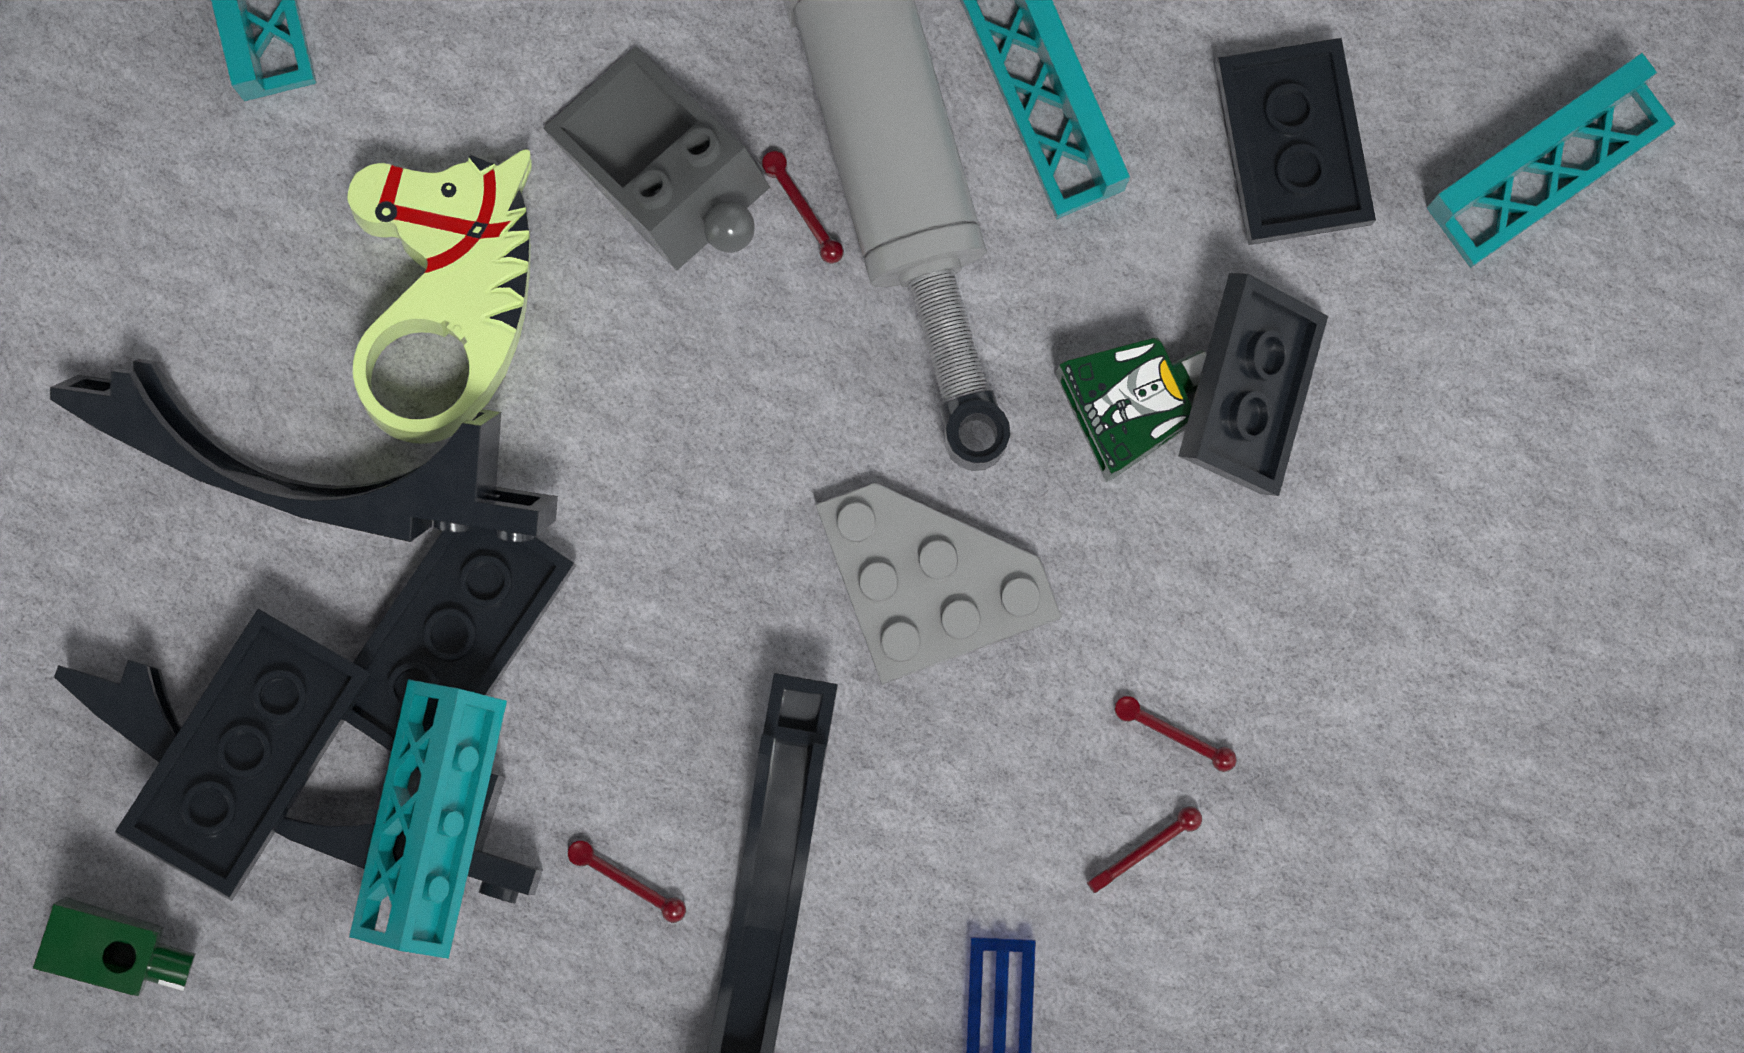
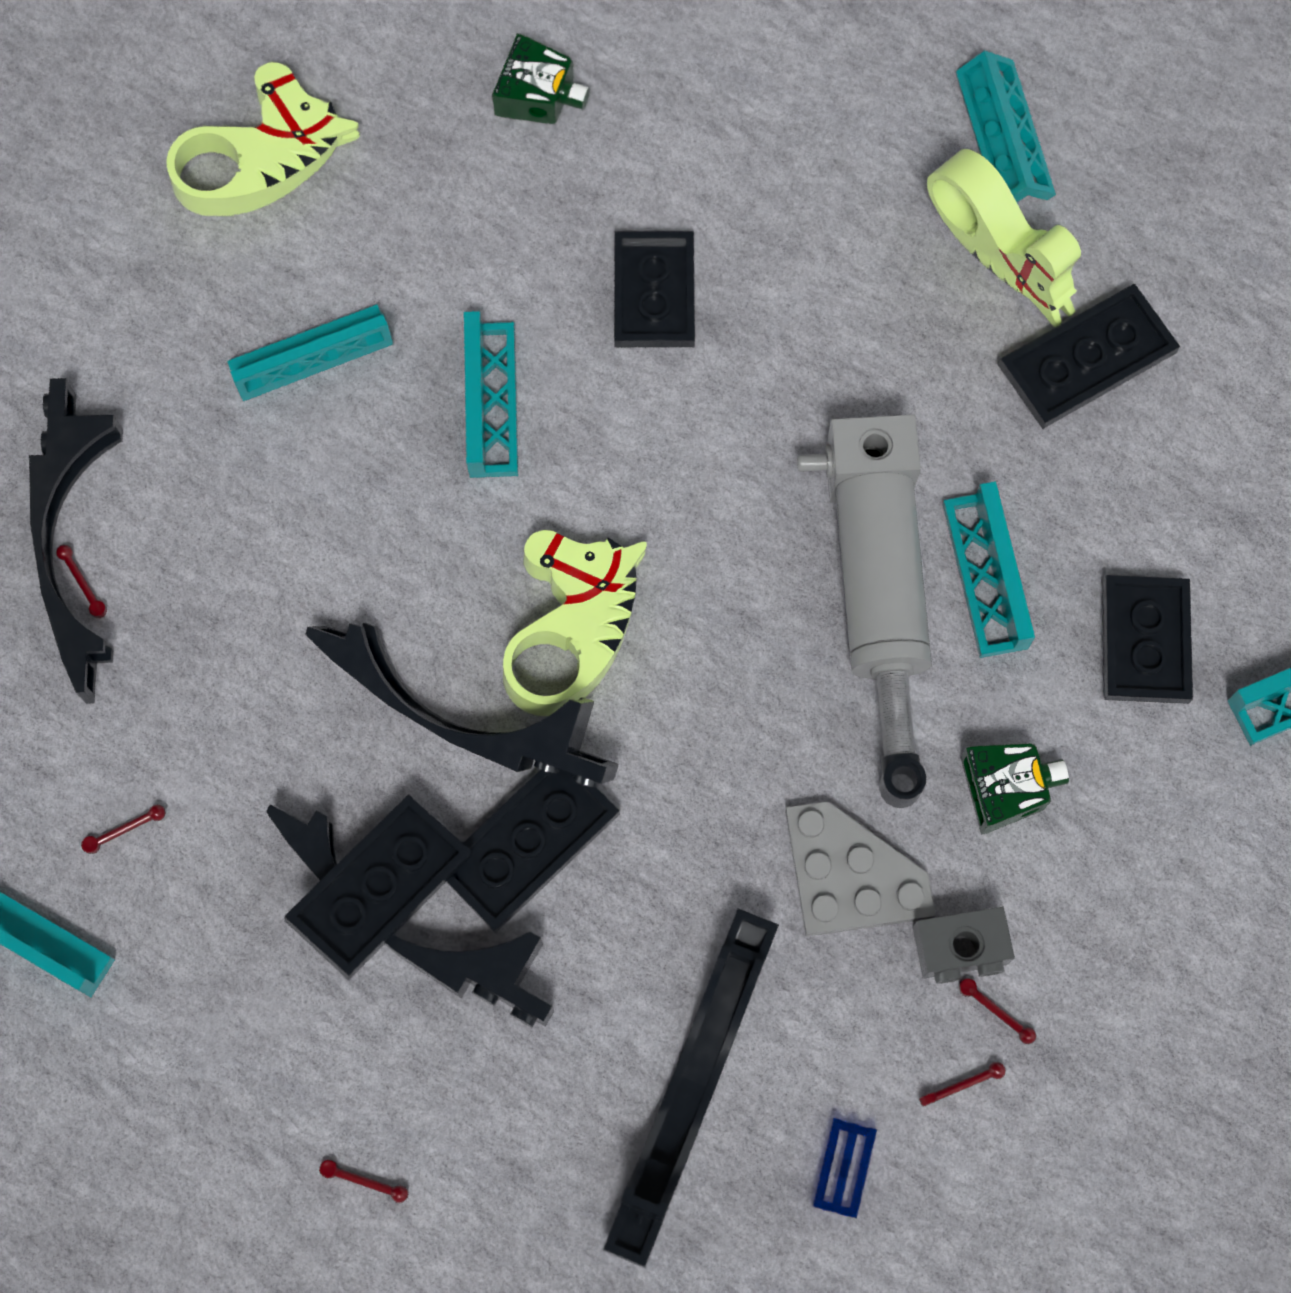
camera: 15 degrees right, 10 degrees down
(80, 943) = (243, 985): dark green torso -> none
(437, 820) = (495, 955): teal fence -> none
(582, 854) = (583, 1006): dark red hinge -> none
(661, 160) = (730, 567): dark grey slope -> none
(775, 166) = (802, 587): dark red hinge -> none
(1137, 623) = (986, 931): none -> dark grey brick
(1253, 384) = (1092, 788): black plate -> none

